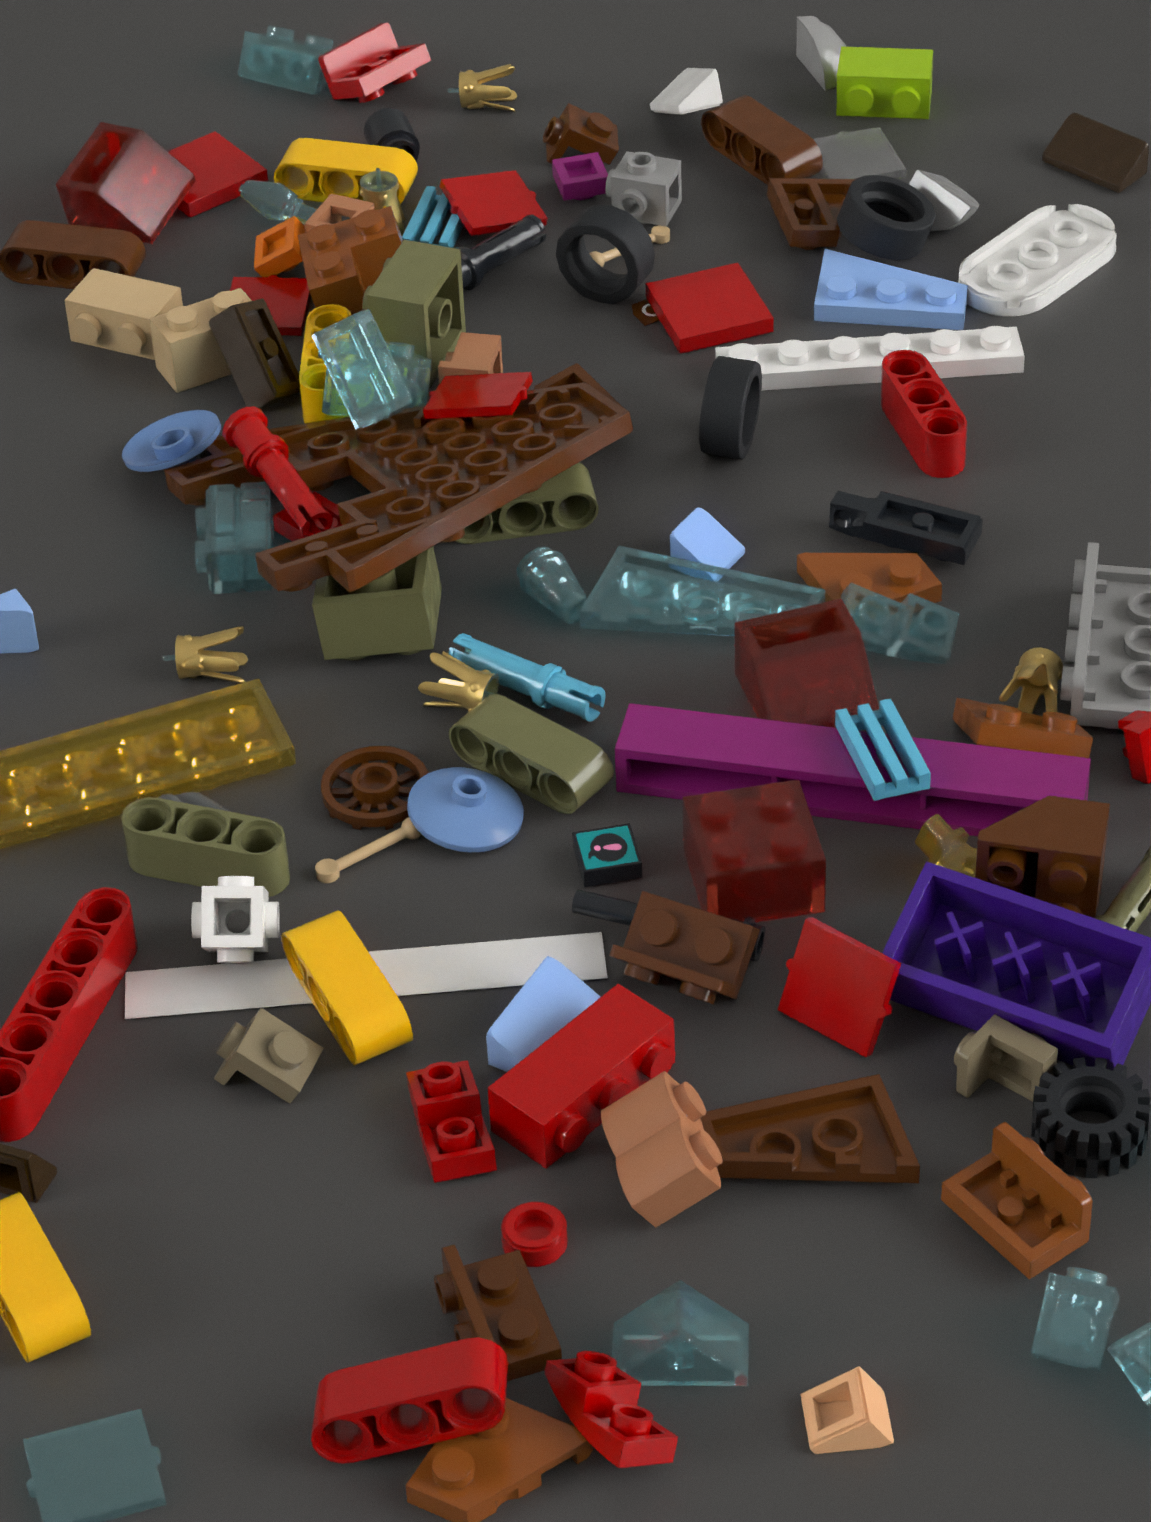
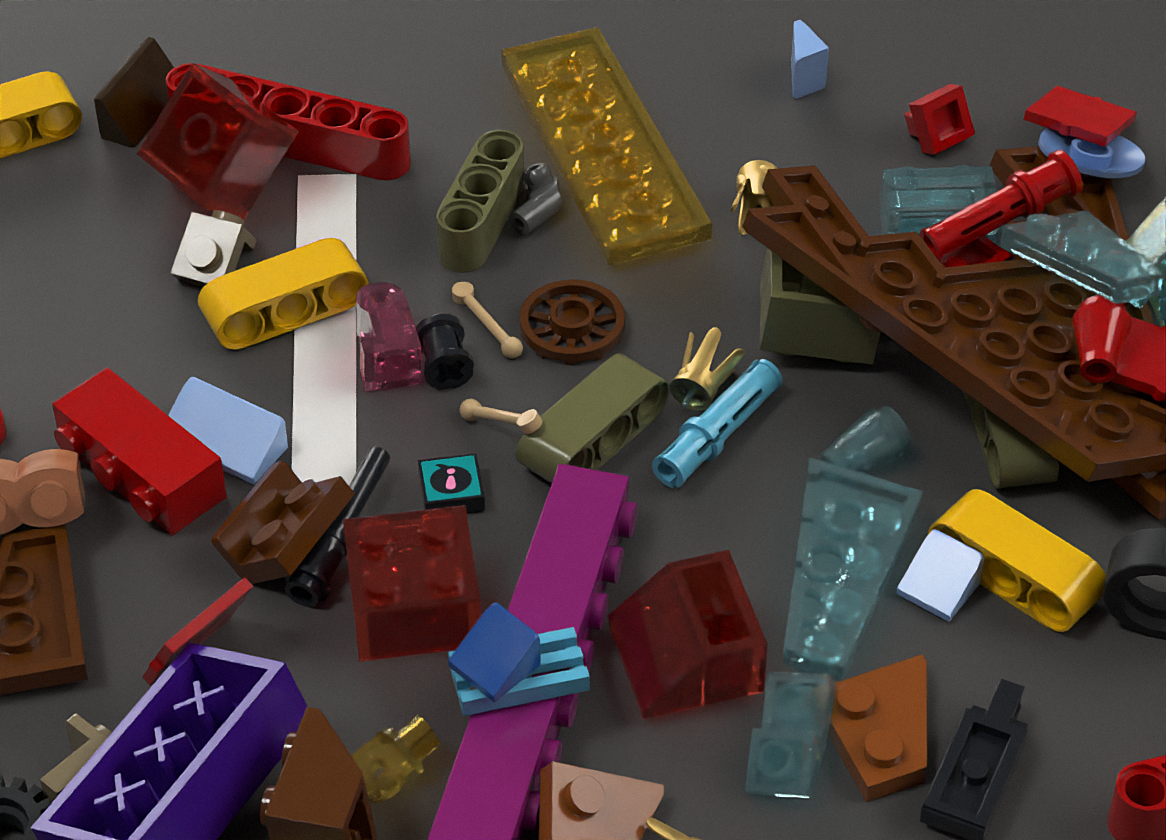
camera: 90 degrees right, 5 degrees up
(103, 540) = (940, 119): none -> red tile
(110, 452) = (1080, 116): none -> red piece
(129, 1033) = (217, 142): none -> clear red brick
(218, 903) = (366, 211): white brick -> none
(372, 408) = (1085, 254): none -> clear light blue wing
(409, 904) = (387, 338): none -> clear pink leg
(432, 862) = (446, 360): none -> black bush
(451, 1121) = (142, 361): red slope -> none
(465, 809) = (502, 386): medium blue dish -> none
(477, 404) = (1100, 337): none -> red cone
(560, 771) = (527, 421): none -> tan hinge
(704, 479) = (1025, 560): none -> yellow beam
(886, 739) = (497, 653): none -> blue slope

